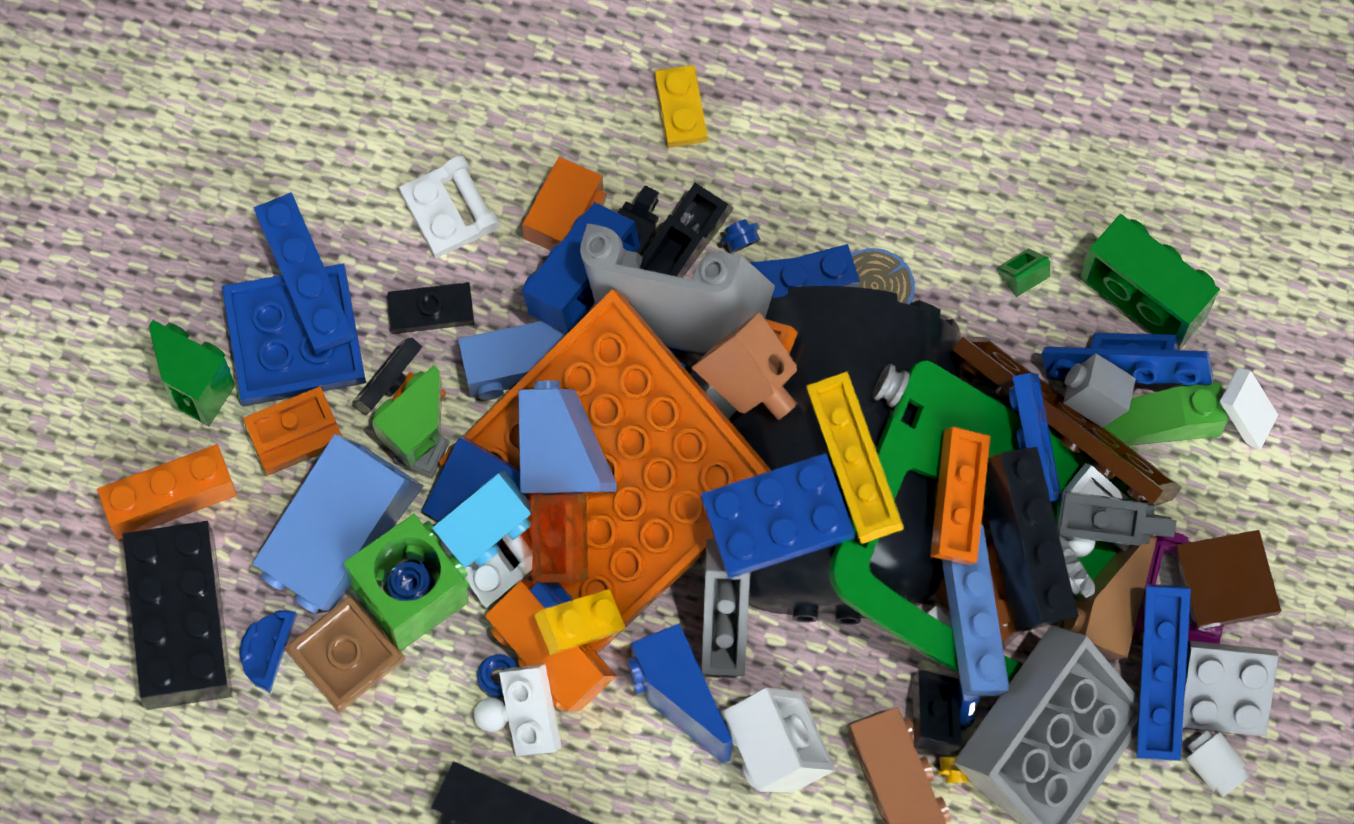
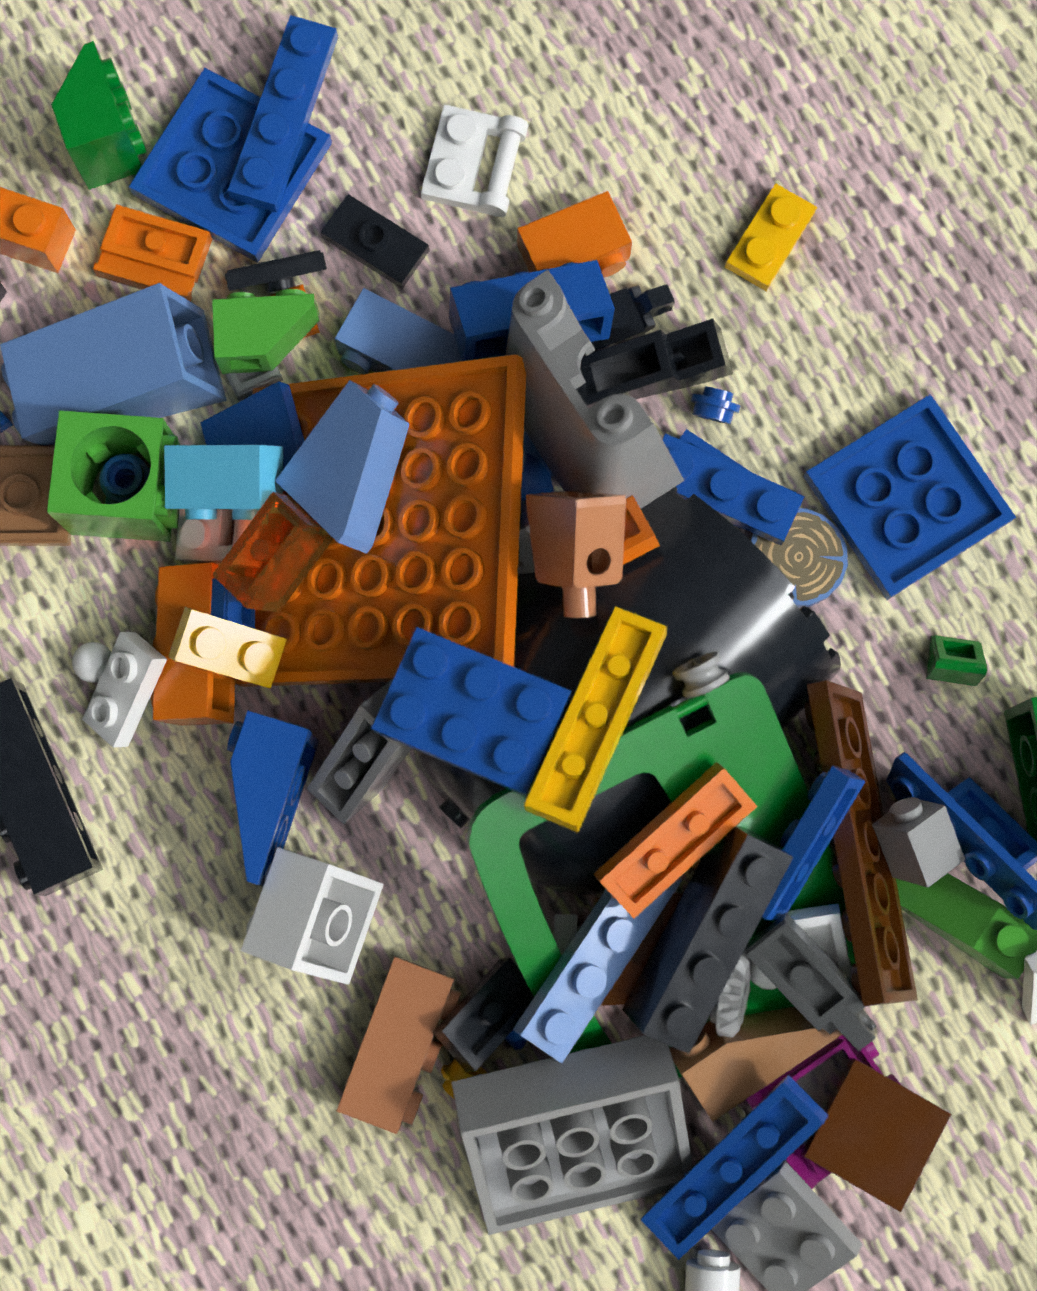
camera: 40 degrees right, 10 degrees up
(487, 667) = (128, 617): blue plate -> none
(908, 195) = (908, 496): none -> blue plate

